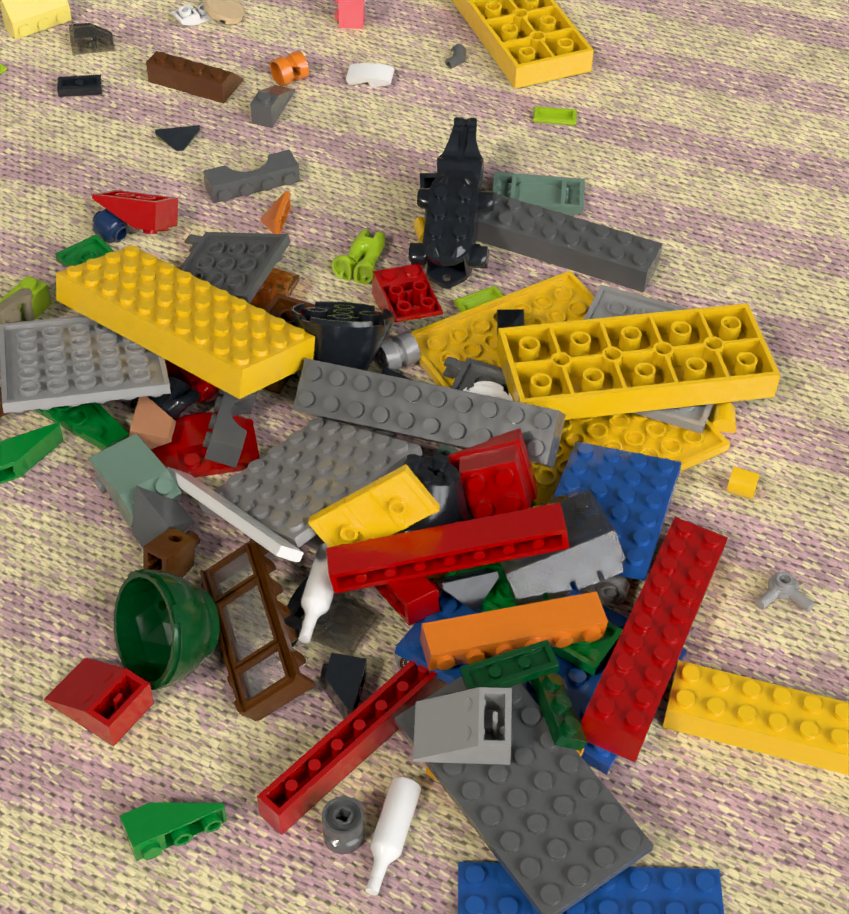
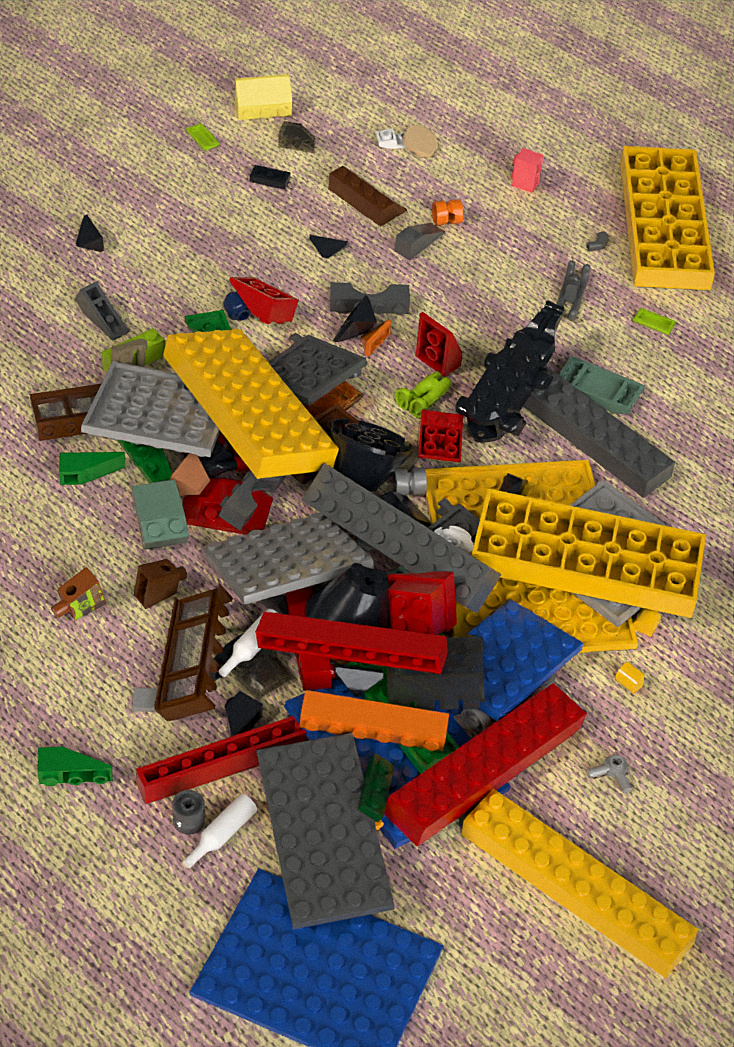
camera: 20 degrees right, 0 degrees up
(82, 607) = (79, 595): none -> dark orange torso
(102, 698) = (65, 665): red slope -> none
(155, 515) = (162, 545): dark grey slope -> none
(161, 640) = (127, 629): dark green piece -> none
(219, 705) = (144, 699): none -> light grey tile
(236, 516) = (213, 564): white tile -> none
(252, 202) = (358, 321): none -> black slope
(354, 200) = (437, 346): none -> red slope
(373, 73) = (516, 237): white slope -> none
(375, 510) = (309, 595): yellow container -> none
(457, 106) = (573, 288): none -> dark grey piece
(464, 727) = (299, 773): light grey slope -> none
(477, 298) = (501, 458): lime tile -> none
(511, 667) = (352, 745): dark green plate -> none

